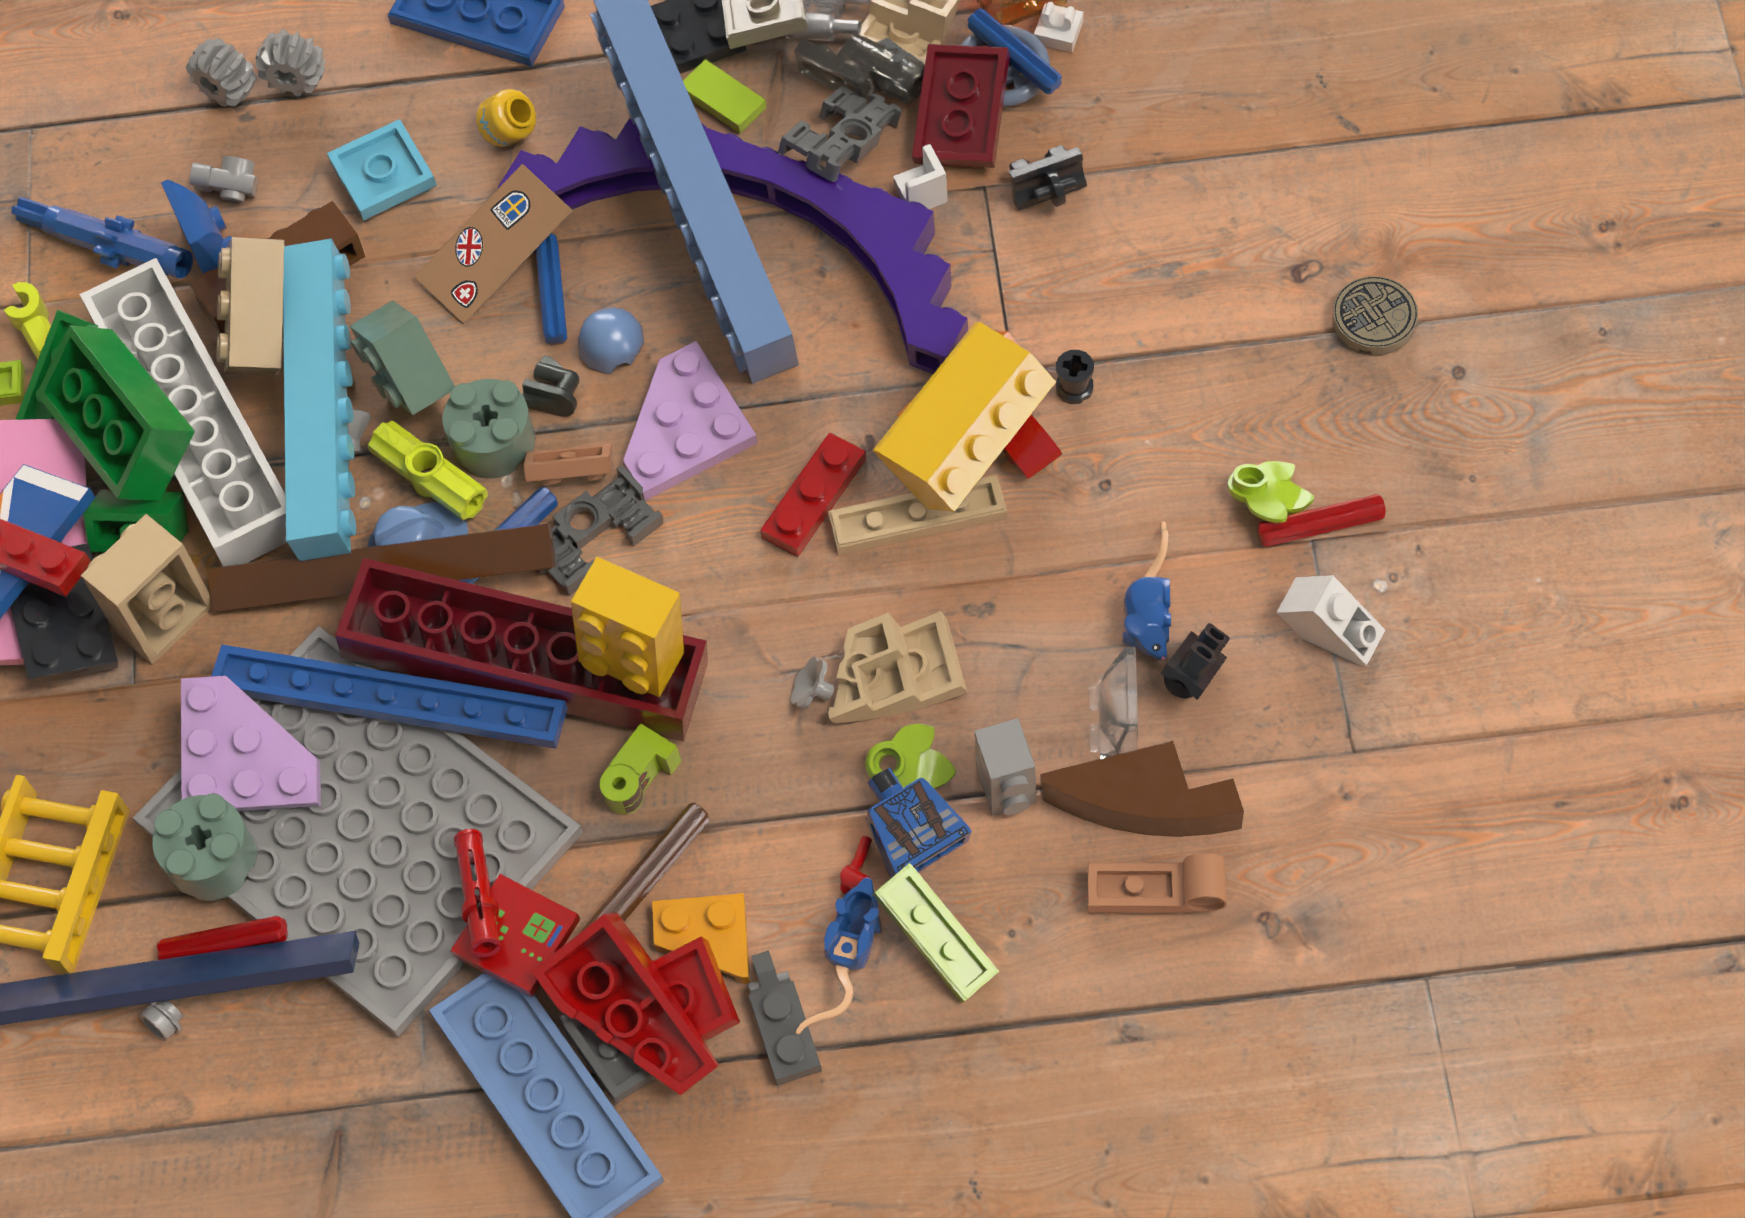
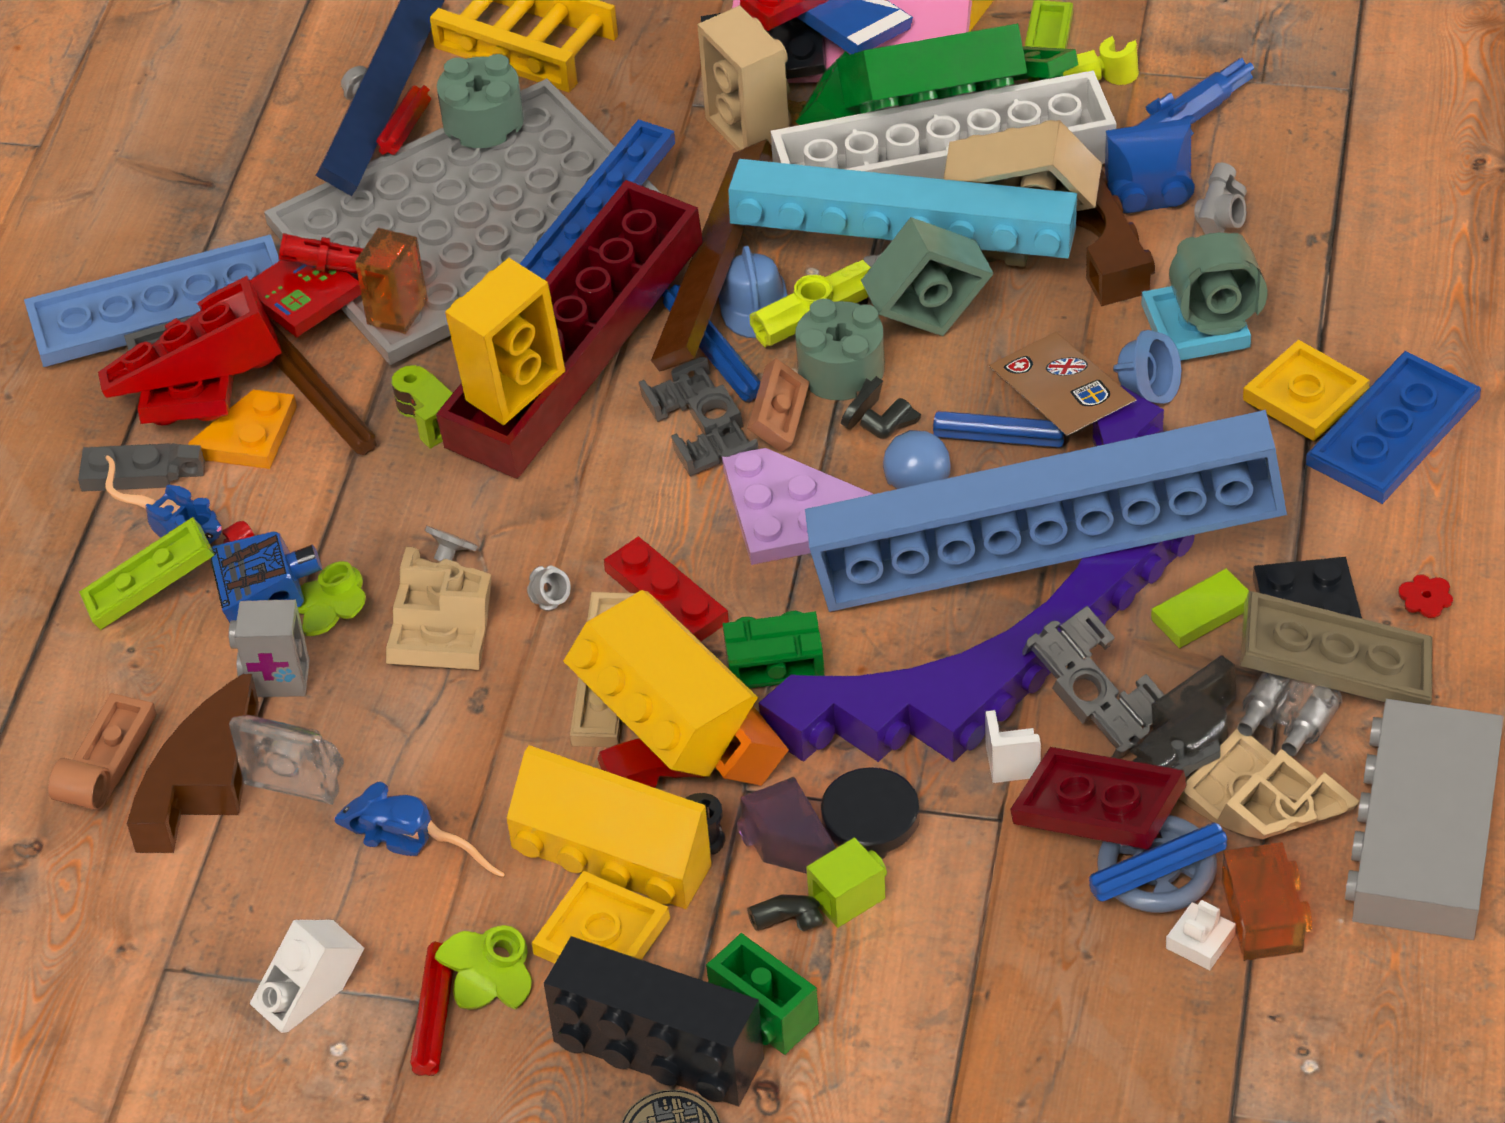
camera: 105 degrees right, 15 degrees down
(221, 72) = (1352, 205): light grey gear -> none
(241, 750) = (563, 132): lavender plate -> none
(290, 62) = (1347, 256): light grey gear -> none
(365, 129) = (1217, 282): none -> sand green brick
(453, 72) = (1305, 390): none -> yellow plate
(467, 179) = (1150, 367): none -> medium blue piece
(506, 118) = (1216, 402): yellow head -> none
(511, 819) = (391, 280): none -> clear orange brick
(844, 582) = (557, 583): none -> light grey plate
(867, 379) = (773, 648): none -> green brick
(1016, 266) = (872, 807): none -> black tile
(1047, 178) = (967, 862): black hips -> none
(1055, 314) = (783, 826): none -> slope
(1097, 258) = (847, 881): none -> lime brick
(1116, 432) = (609, 827): none -> yellow slope
(1130, 298) = (784, 907): none -> pearl dark grey arm
(1195, 663) = (308, 832): black hips -> none
(1204, 419) = (603, 916): none -> yellow plate
(1235, 275) = (785, 998): none -> green brick
(1298, 334) = (654, 1021): none -> black brick

